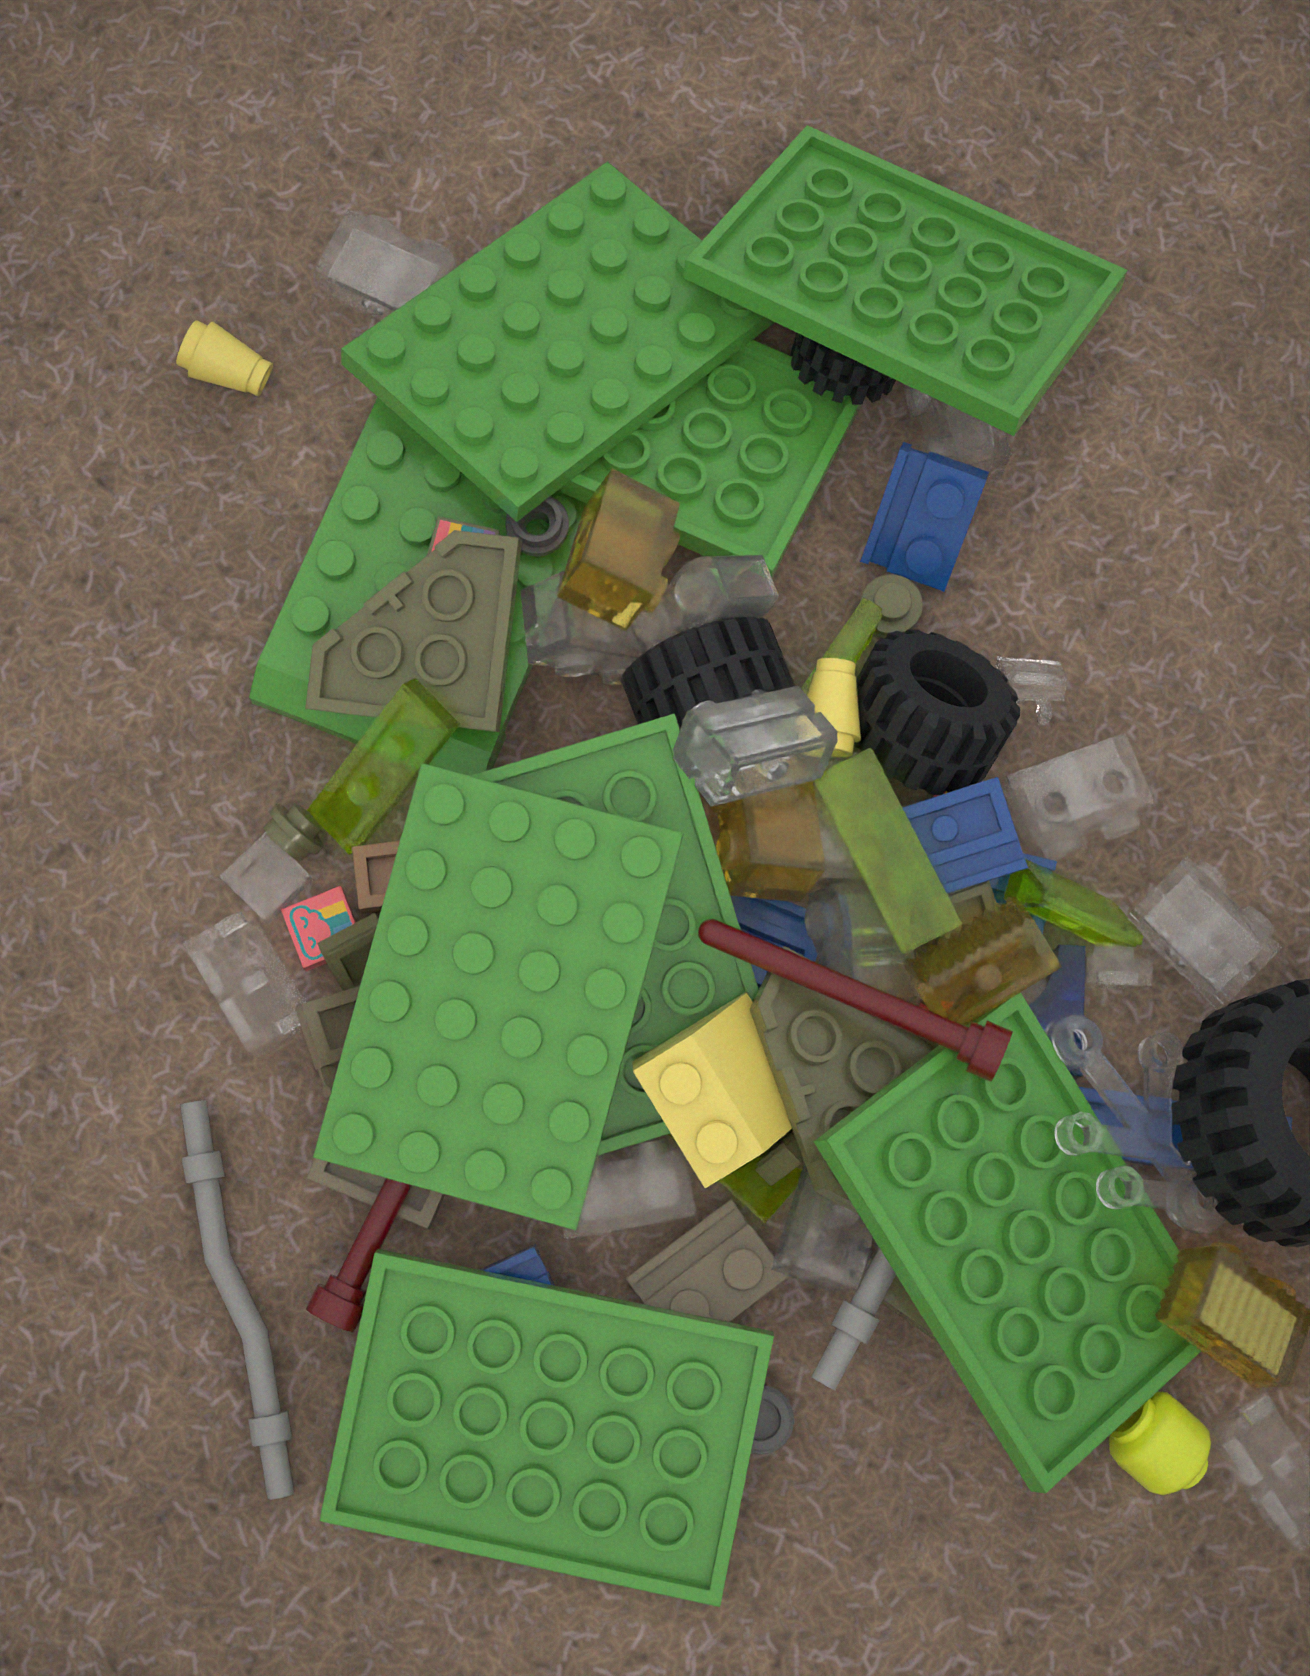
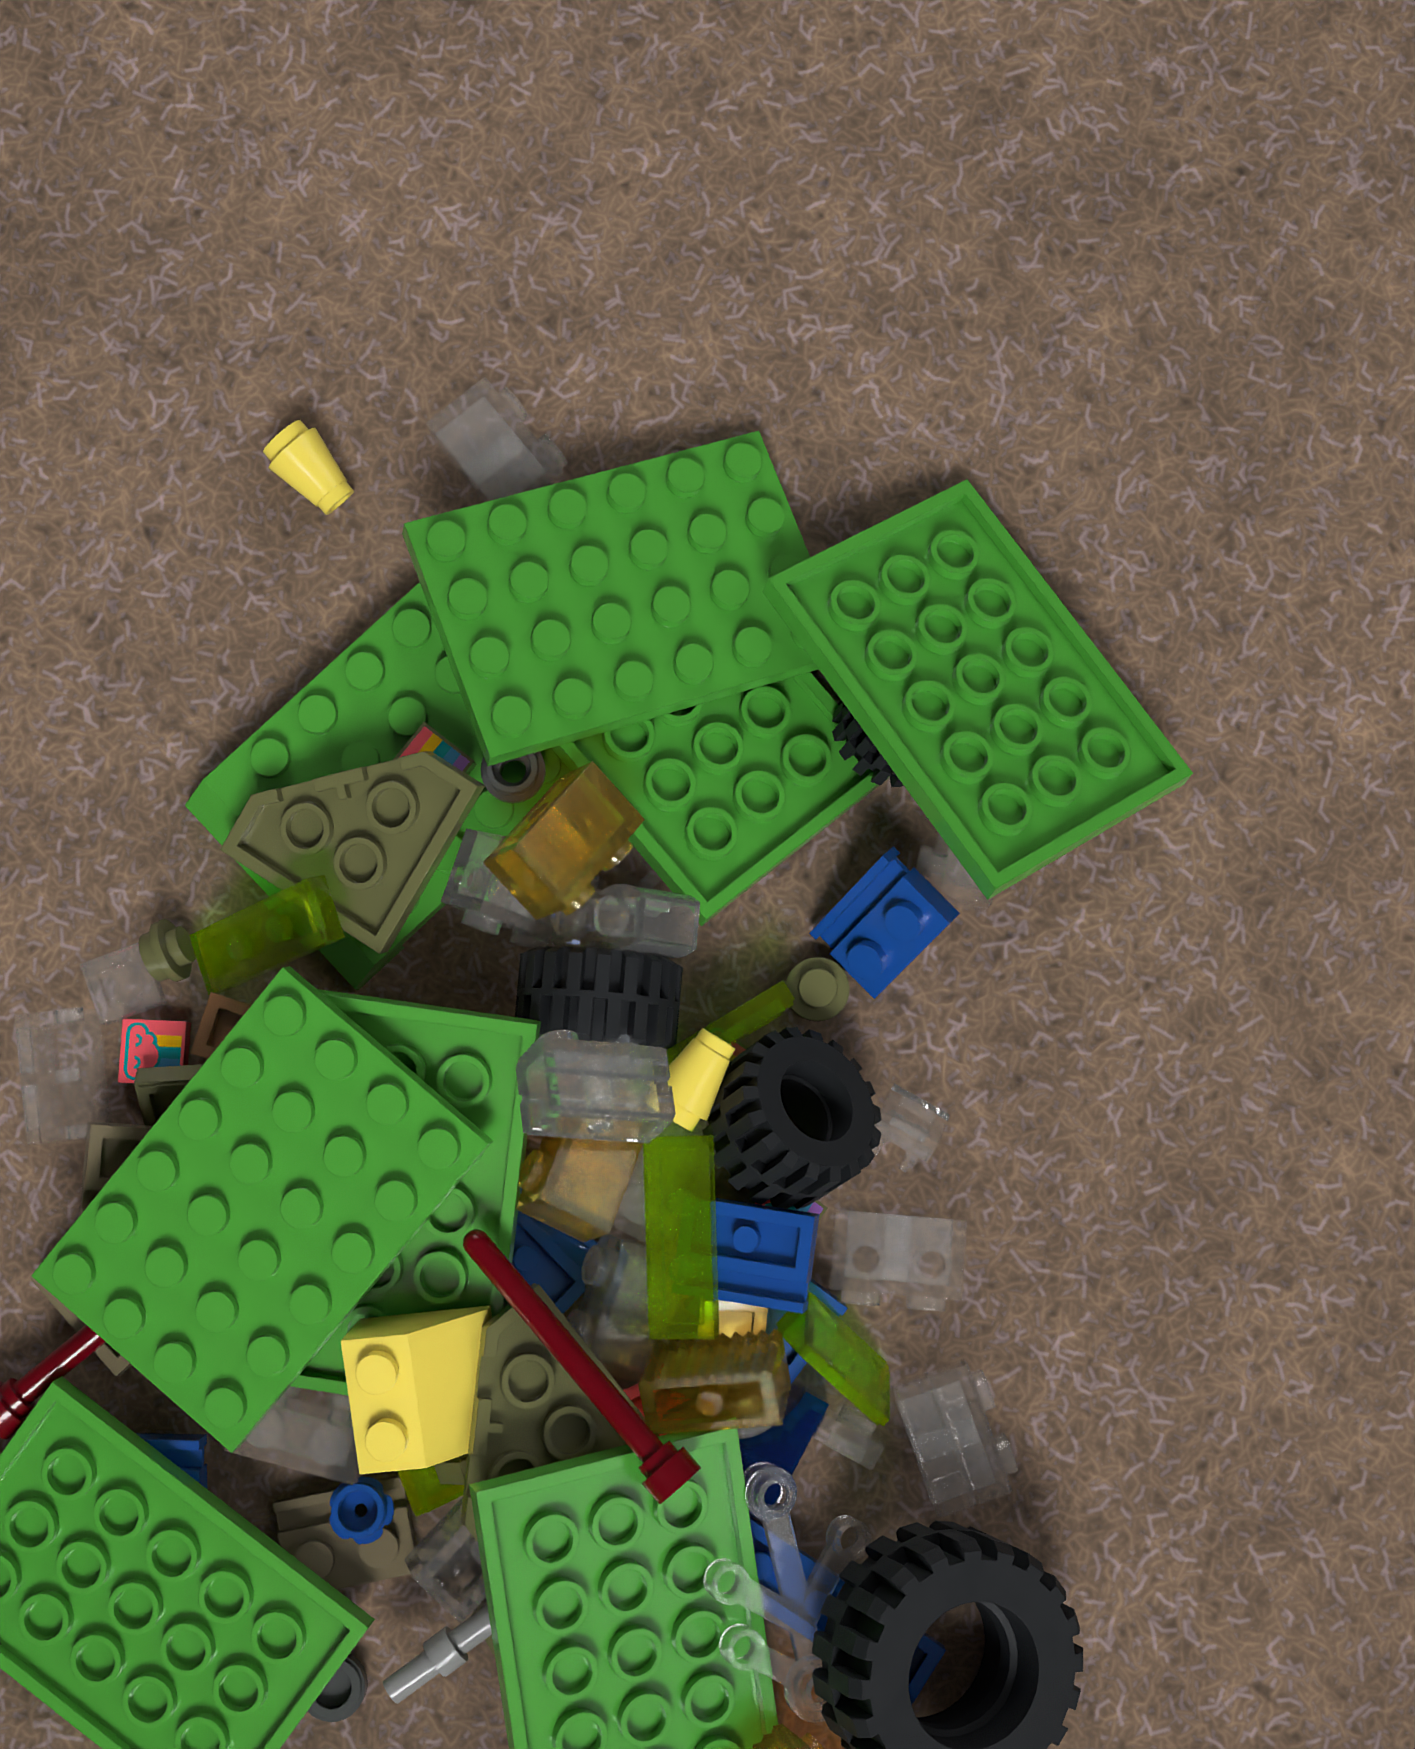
camera: 30 degrees right, 5 degrees up
(712, 1222) = (346, 1521): none -> blue plate

